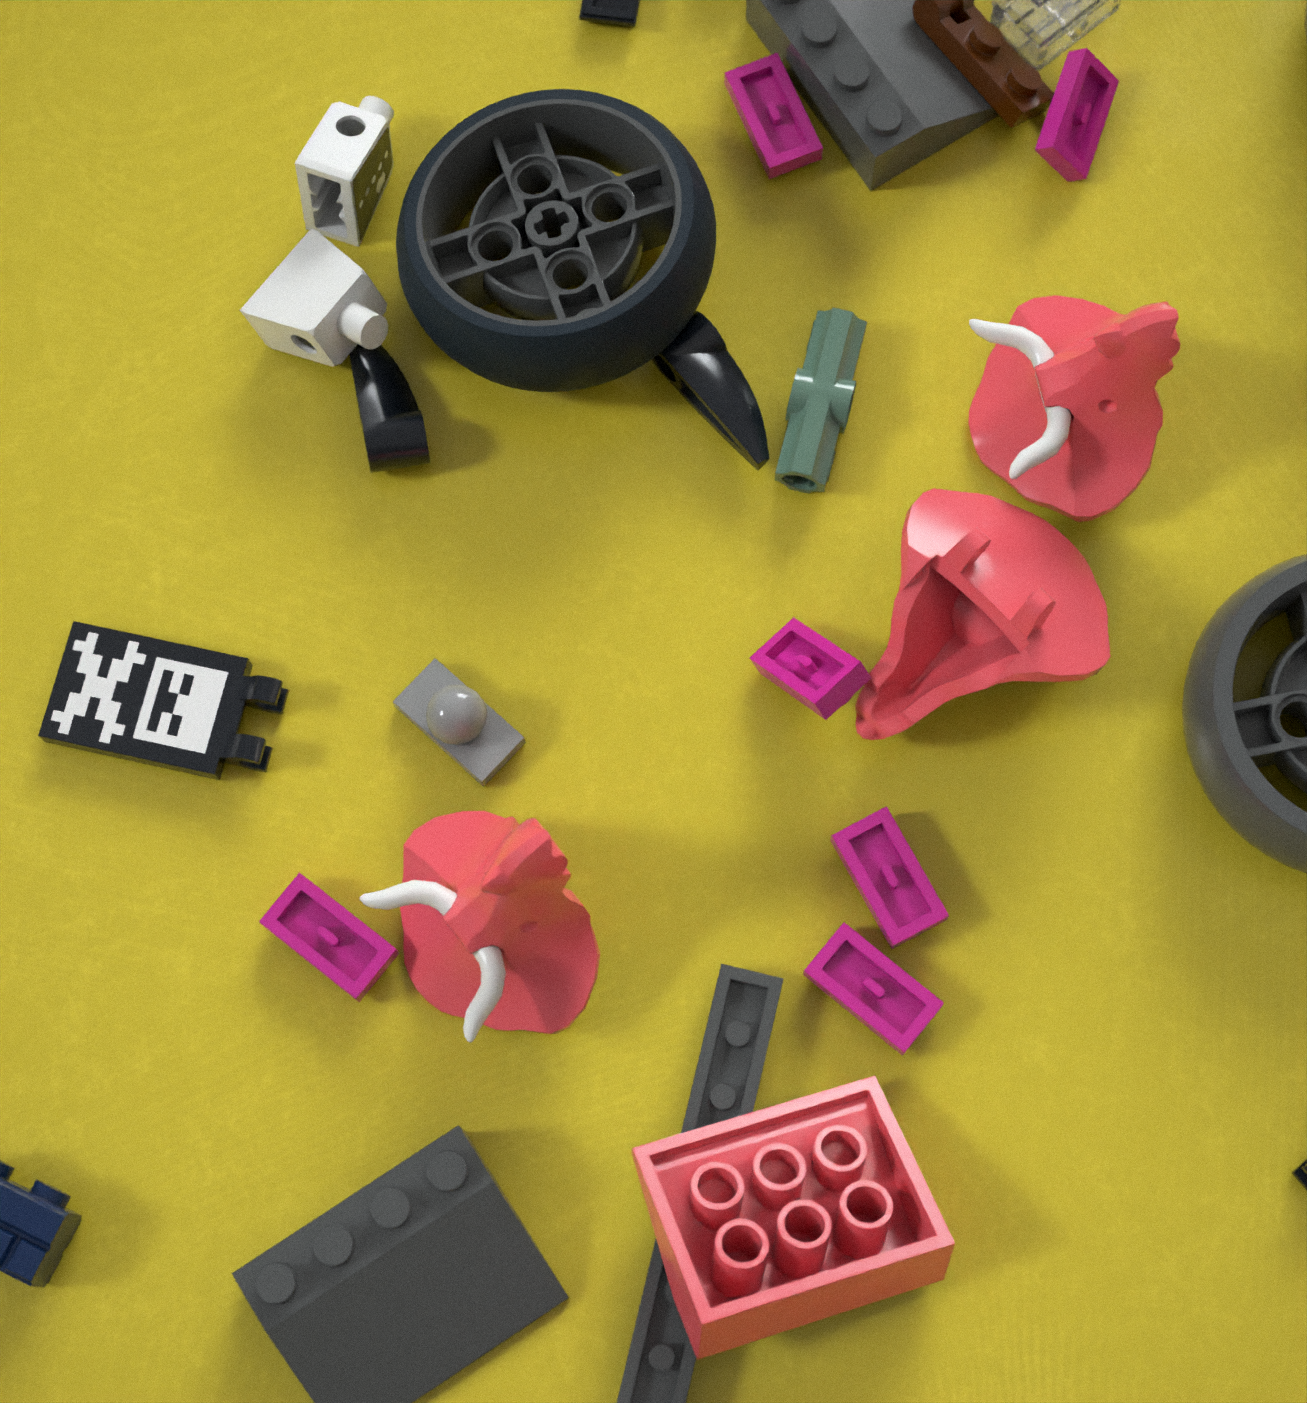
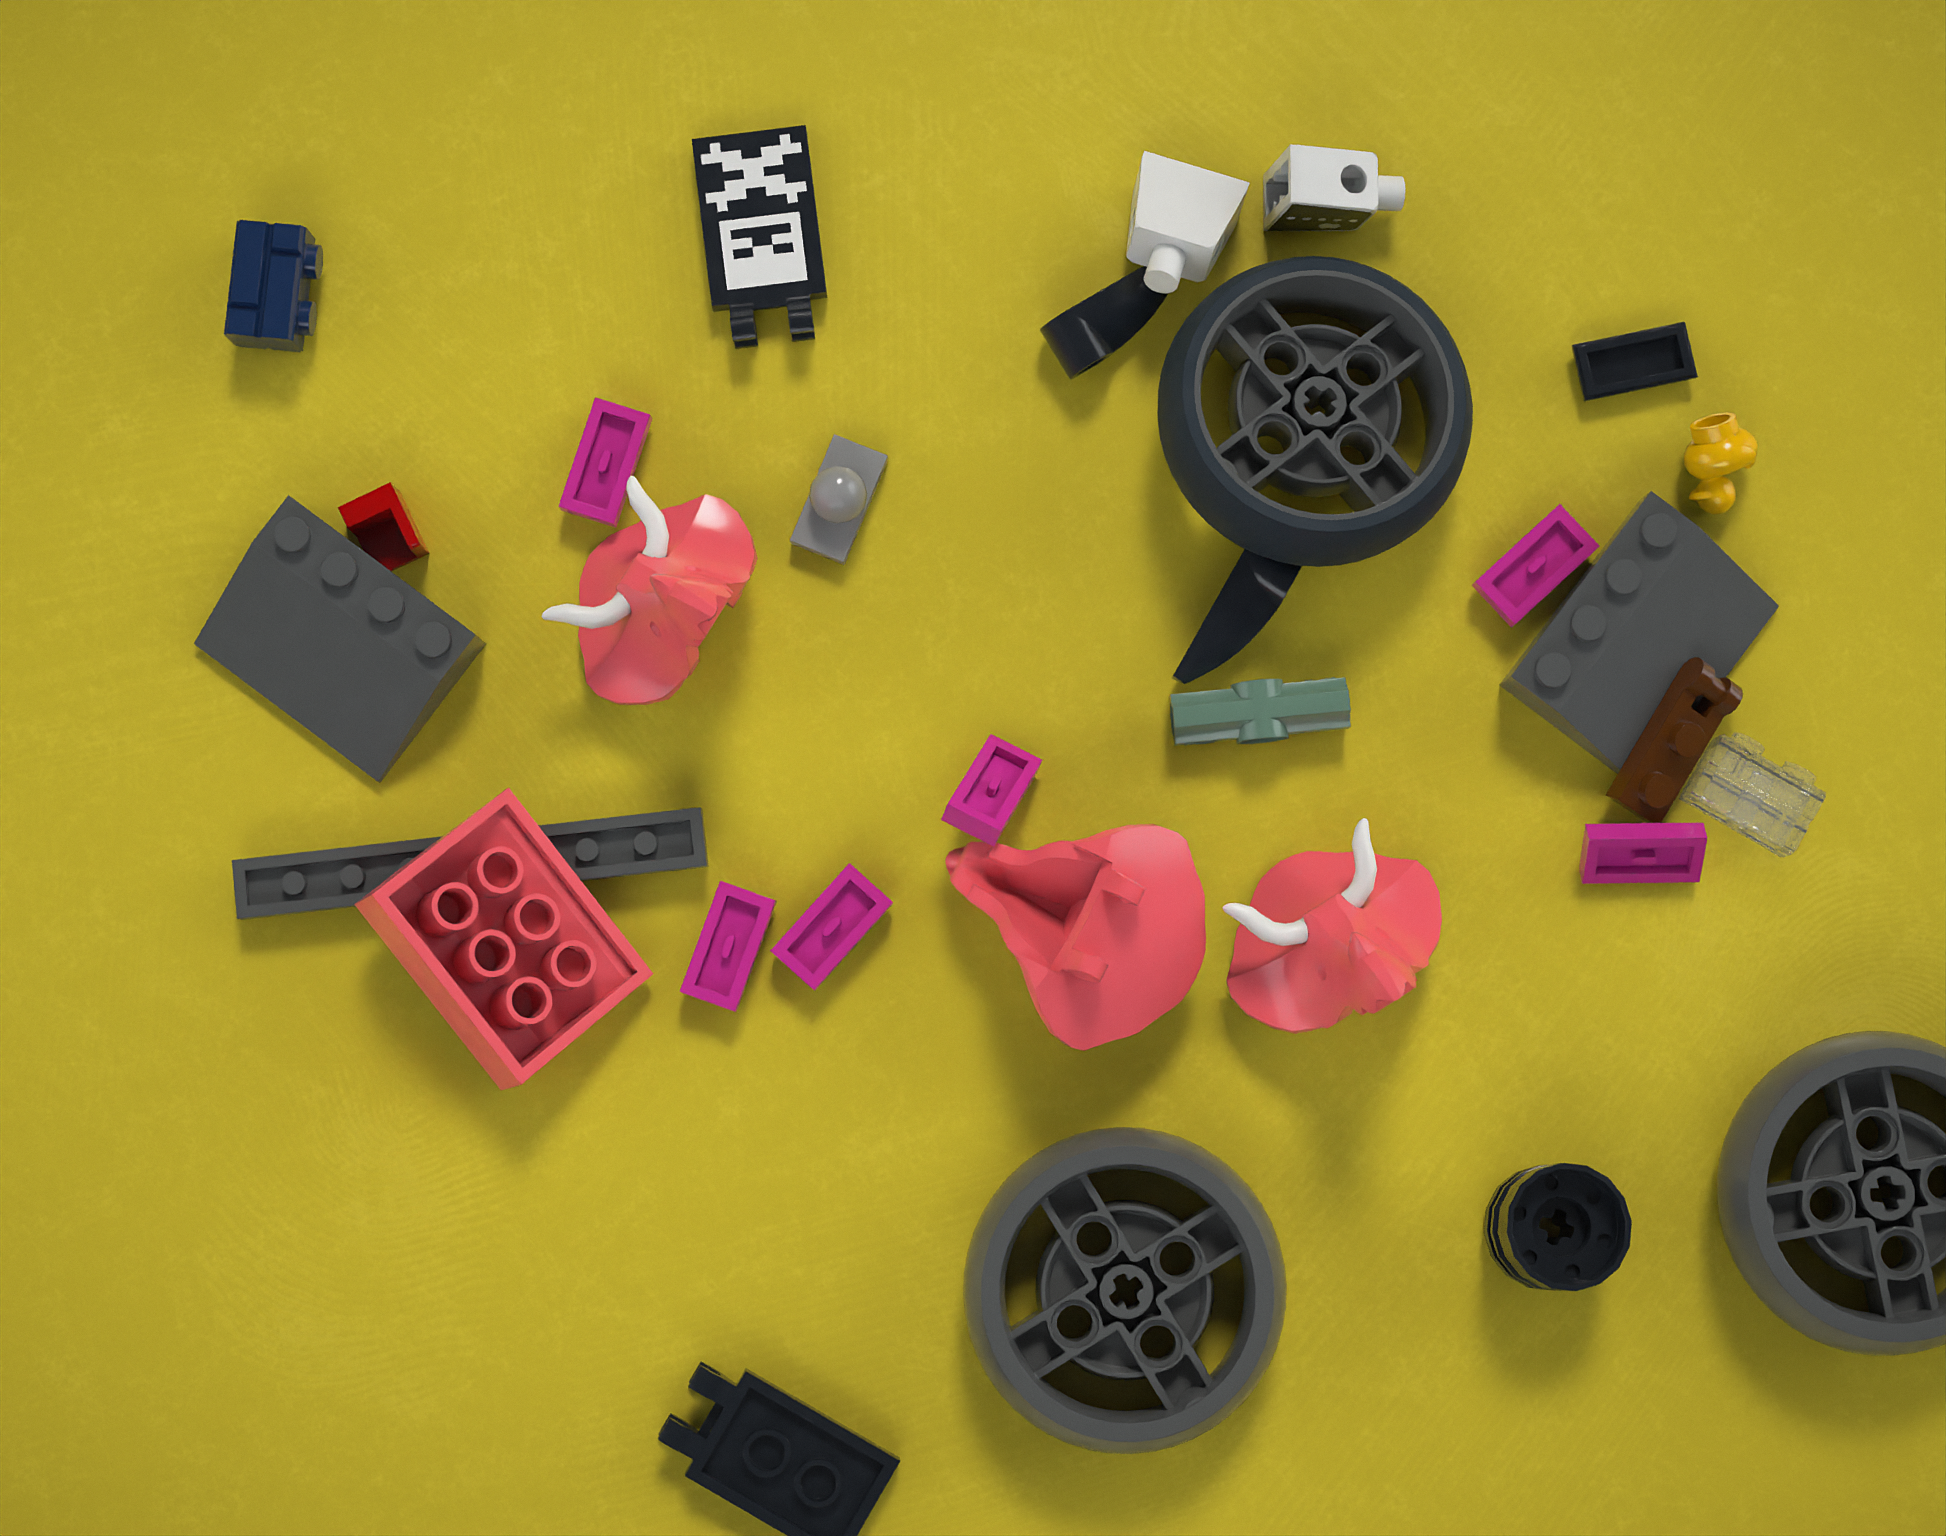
camera: 65 degrees right, 10 degrees up
(302, 1189) = (384, 527): none -> red panel

